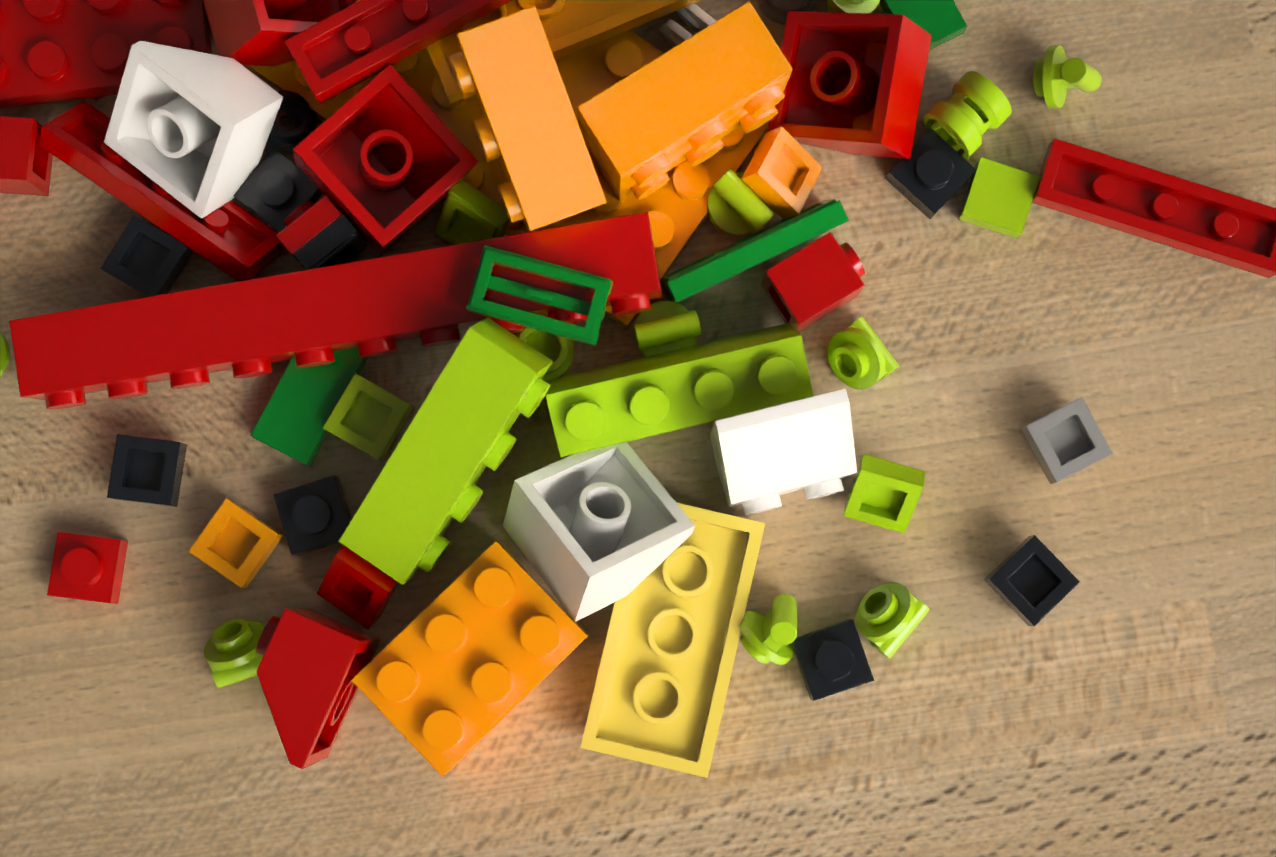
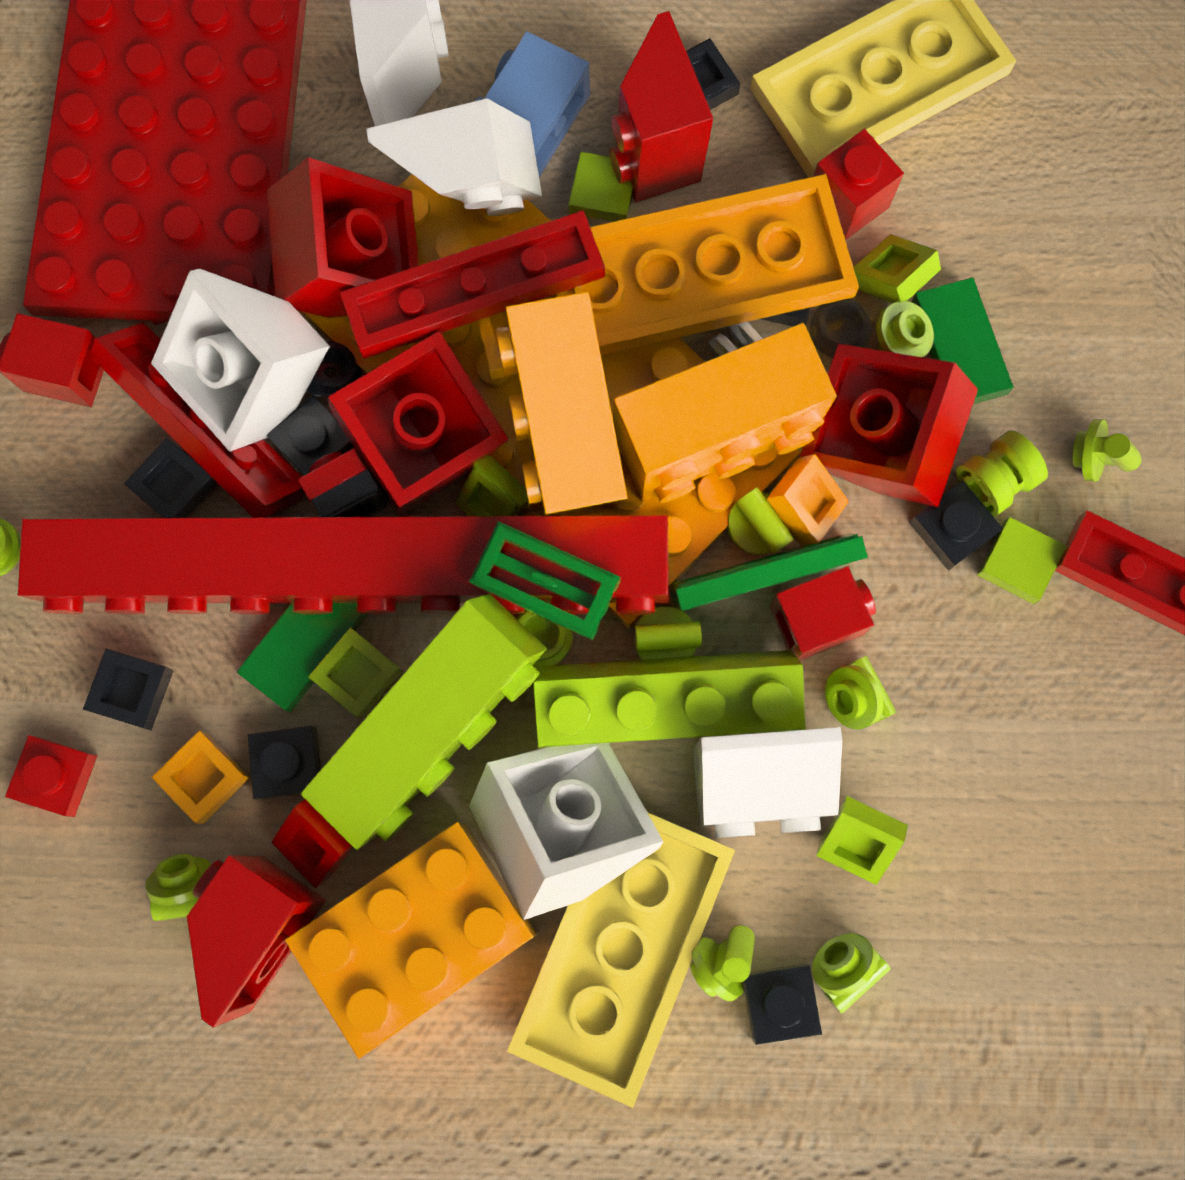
camera: 15 degrees right, 5 degrees down
(1032, 580) = (1002, 958): black plate -> none
(1066, 440) = (1057, 818): light grey plate -> none

